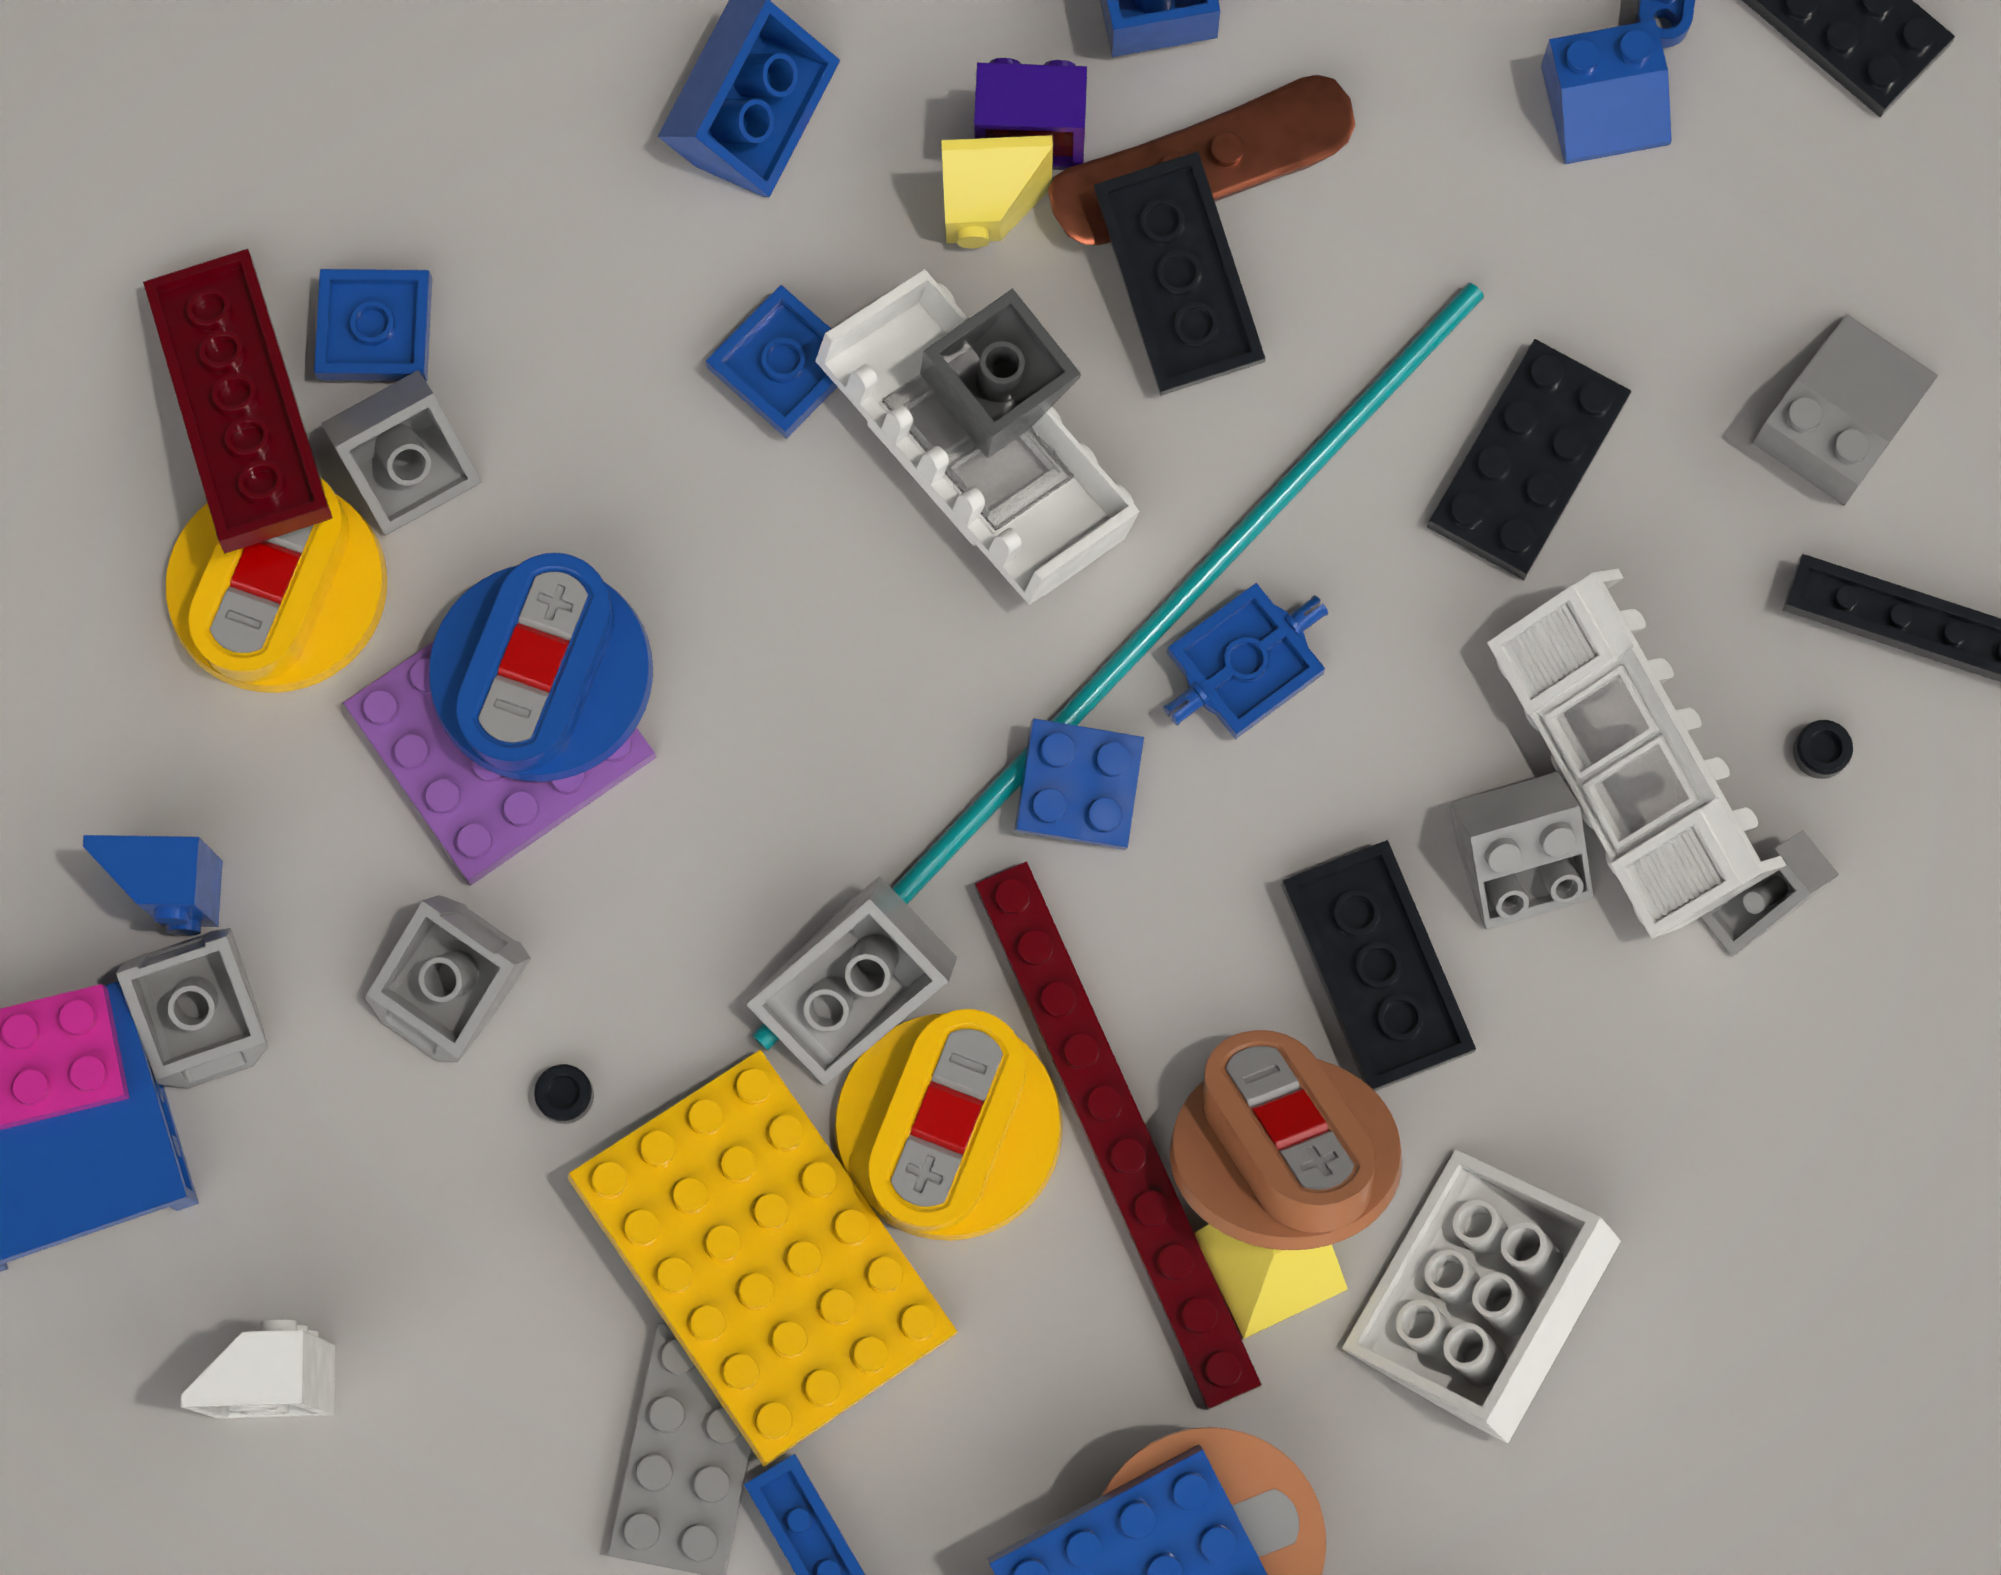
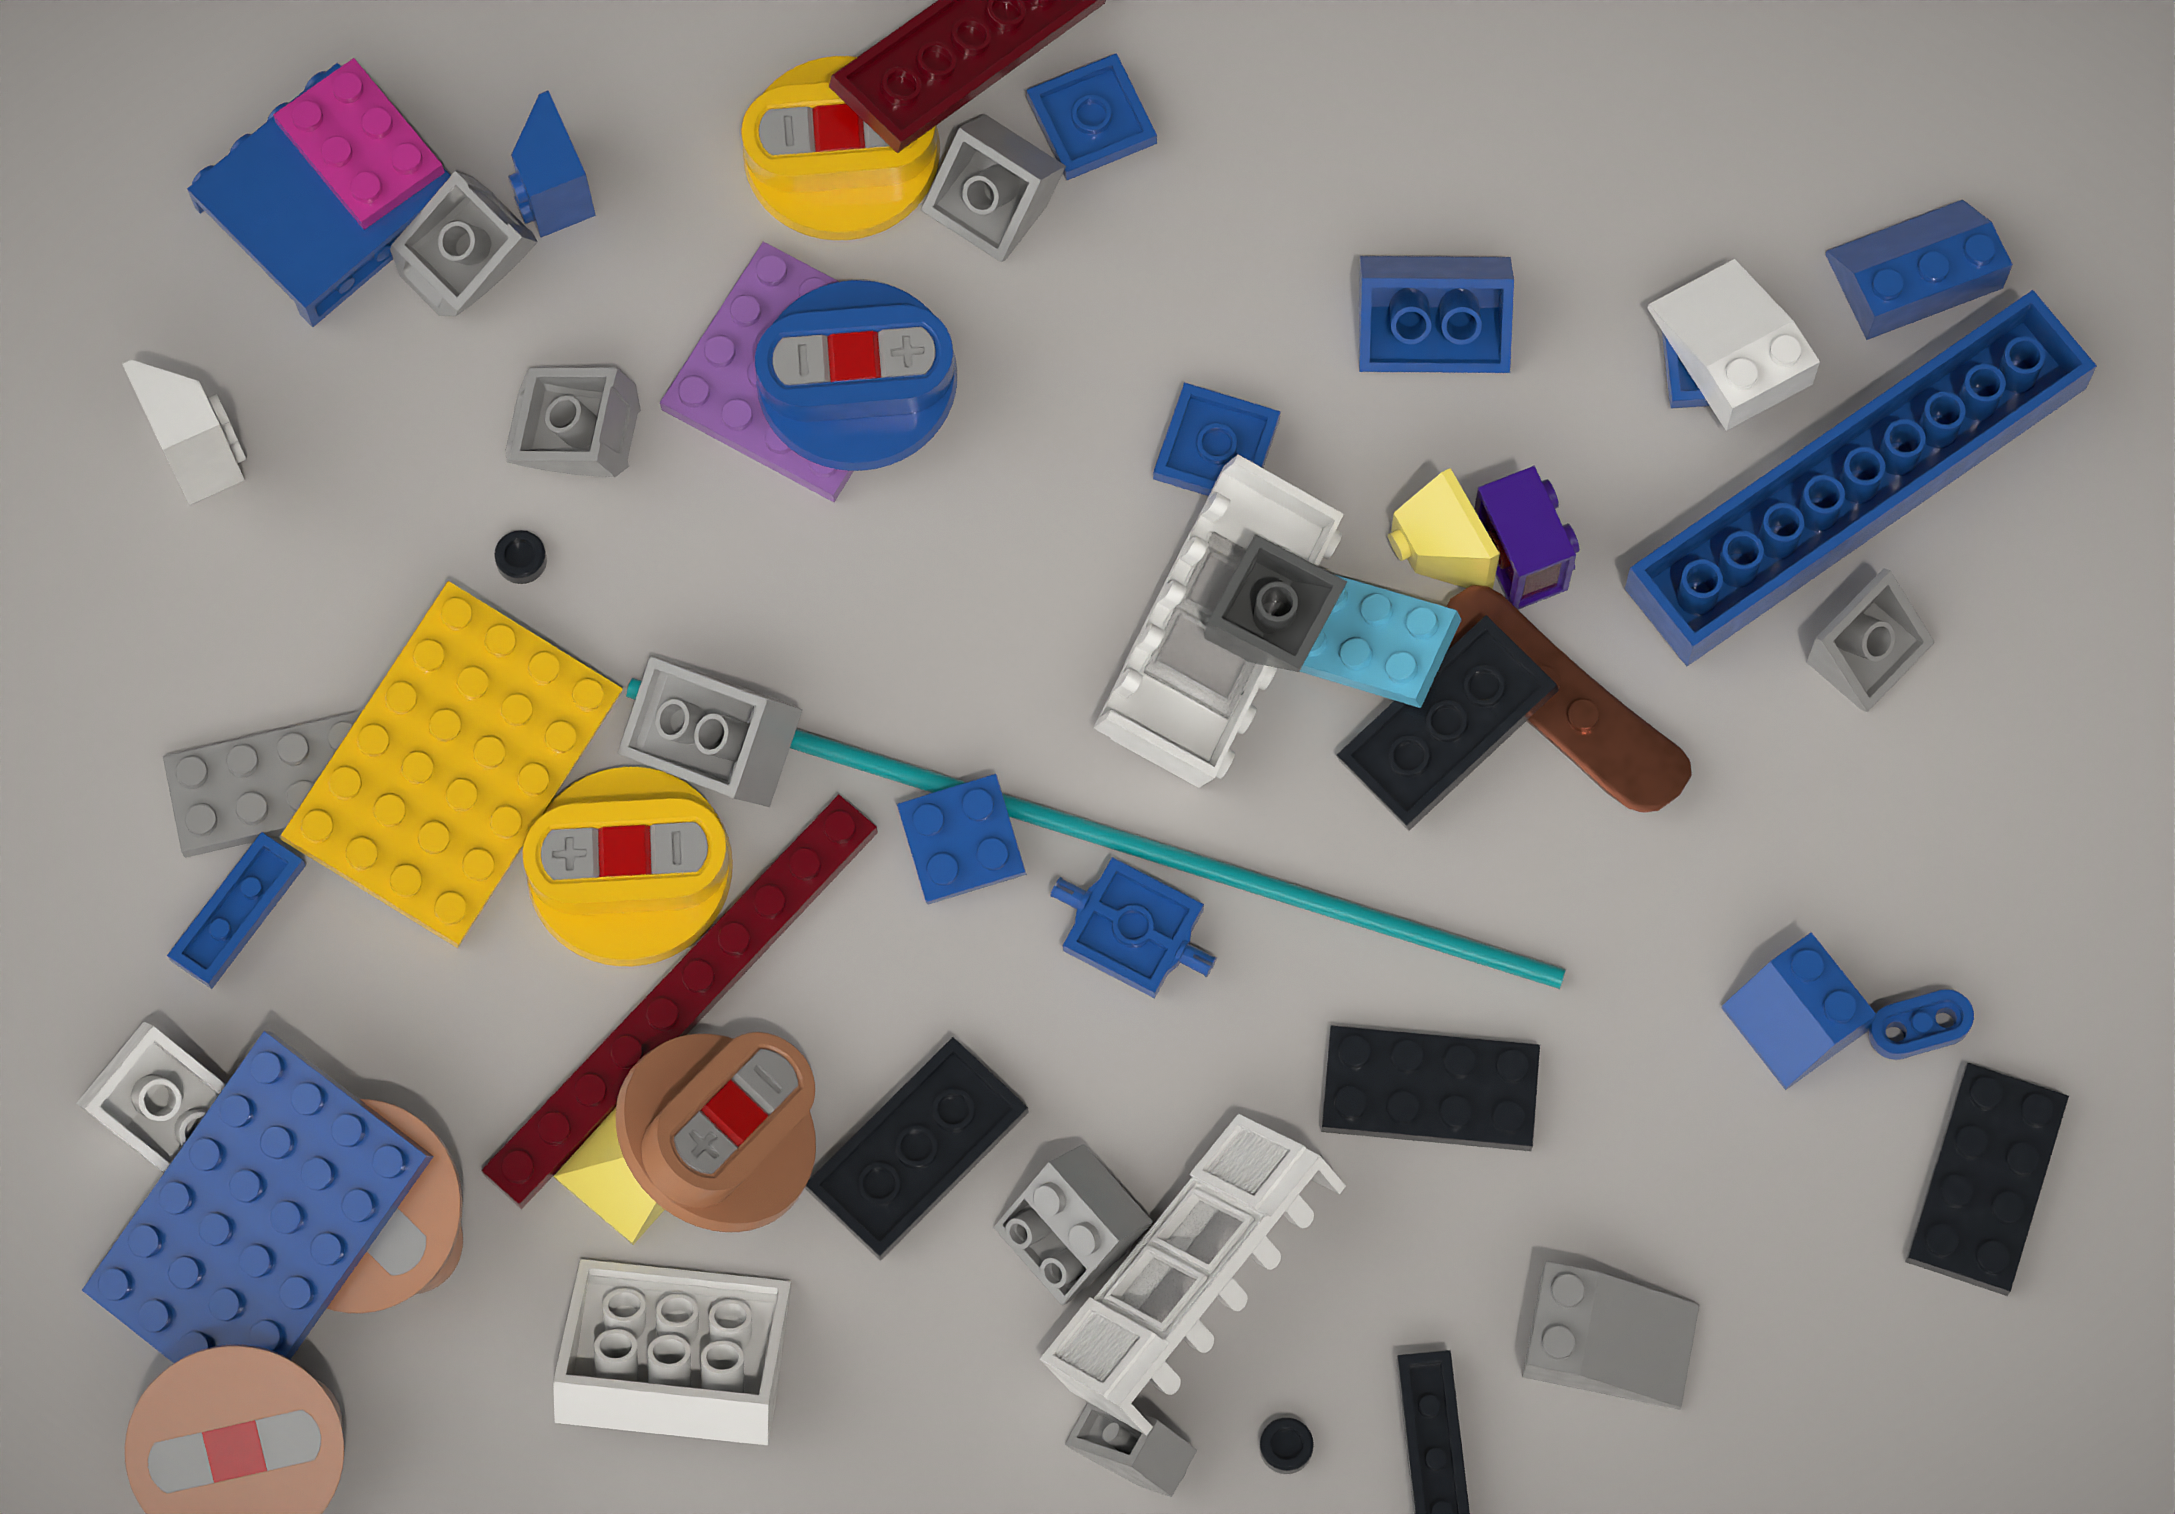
camera: 65 degrees right, 5 degrees down
(1078, 286) = (1383, 643): none -> medium azure plate

